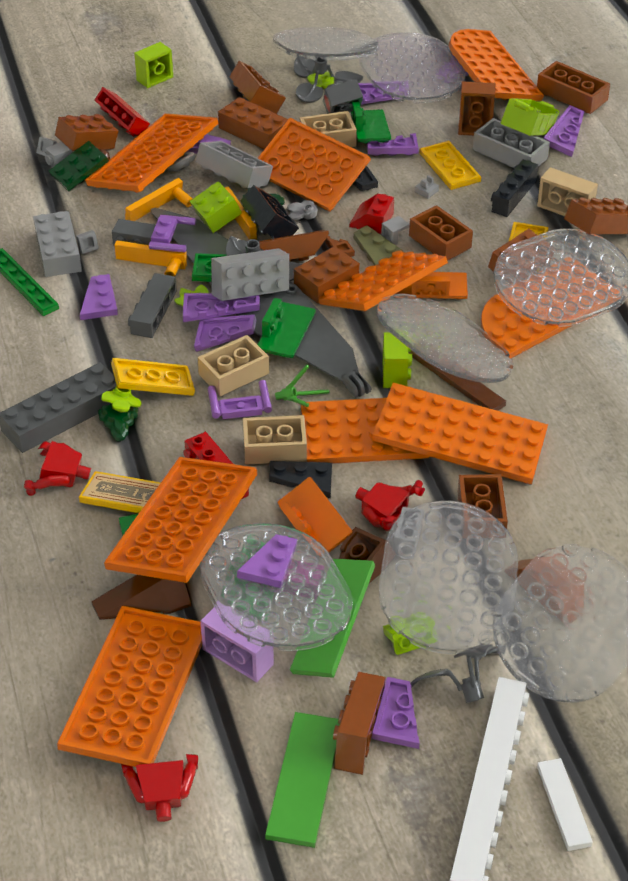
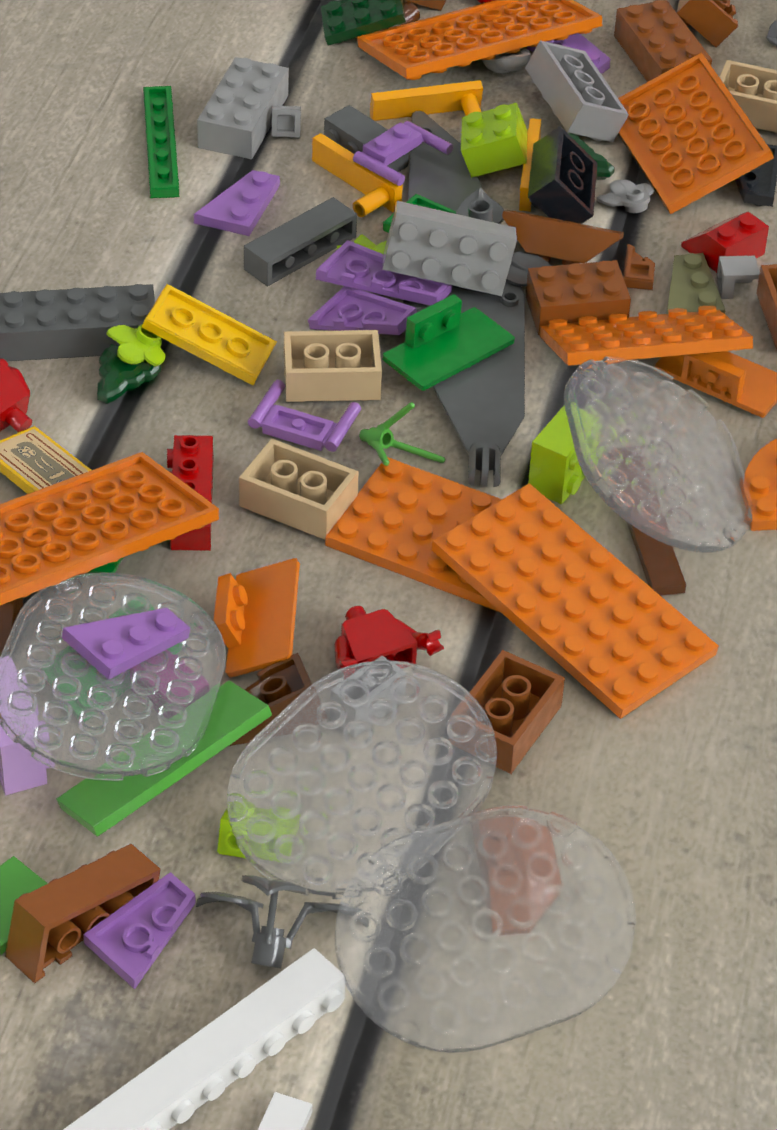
camera: 30 degrees right, 0 degrees up
(294, 473) = (320, 562): black wing -> none

